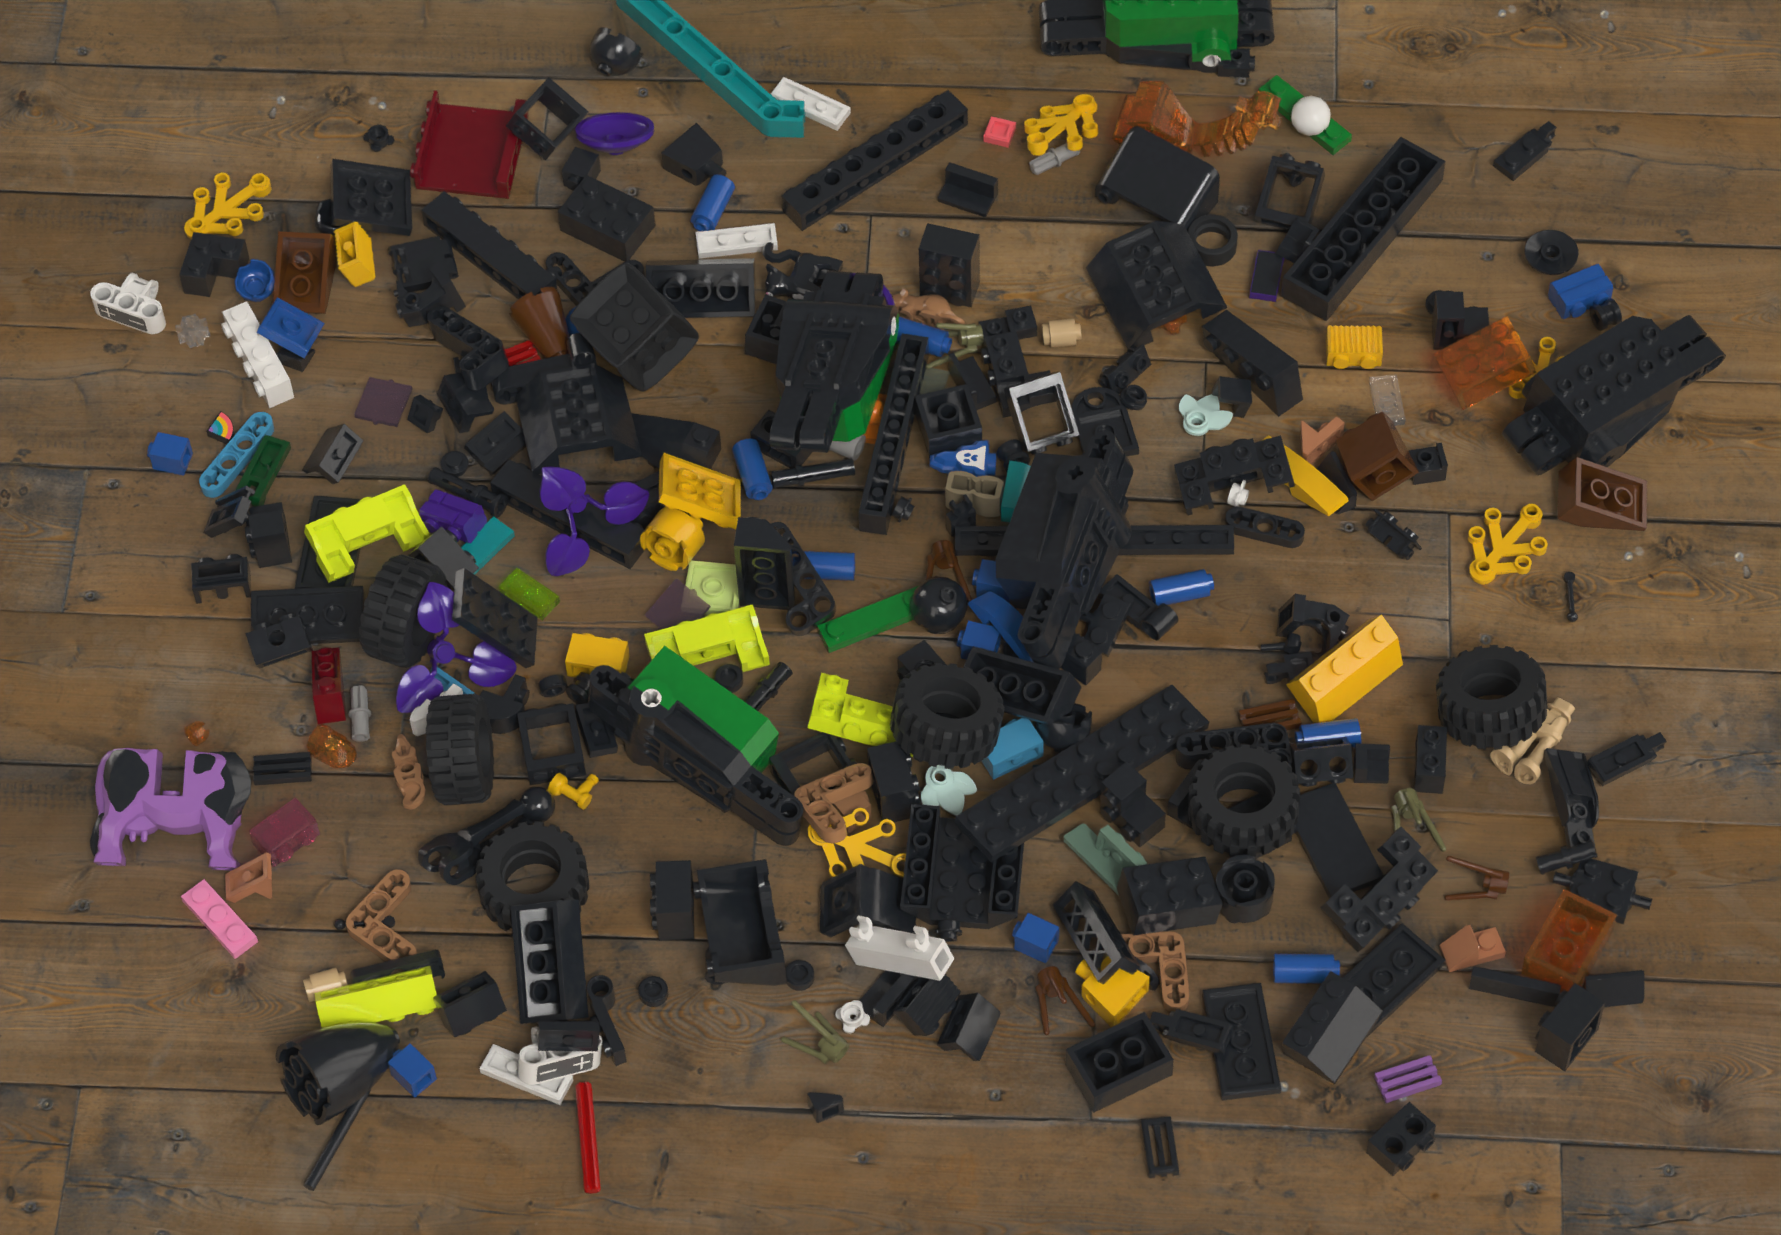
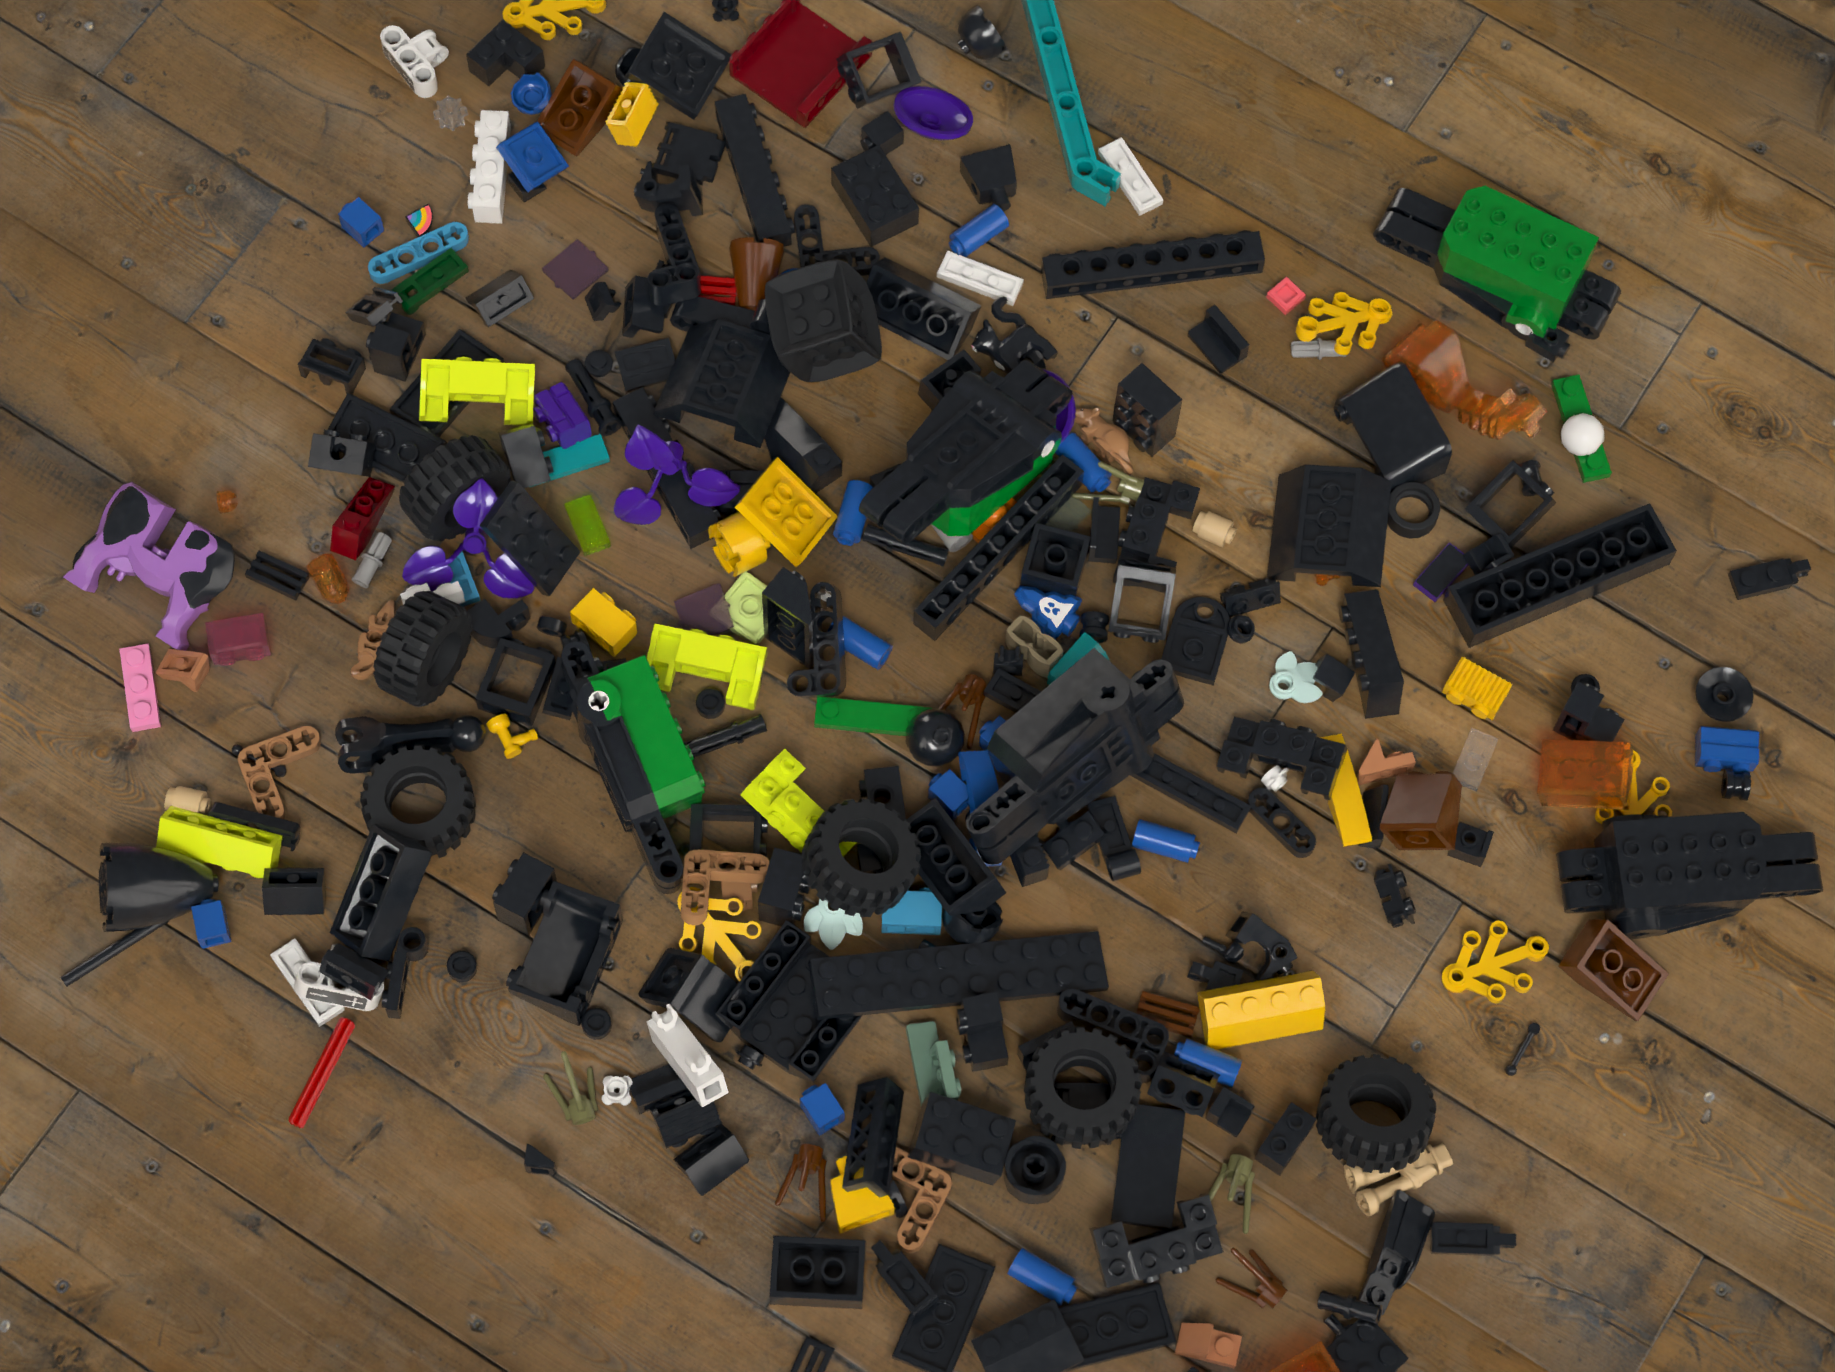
camera: 25 degrees right, 10 degrees up
(903, 509) = (964, 624): black plate -> none

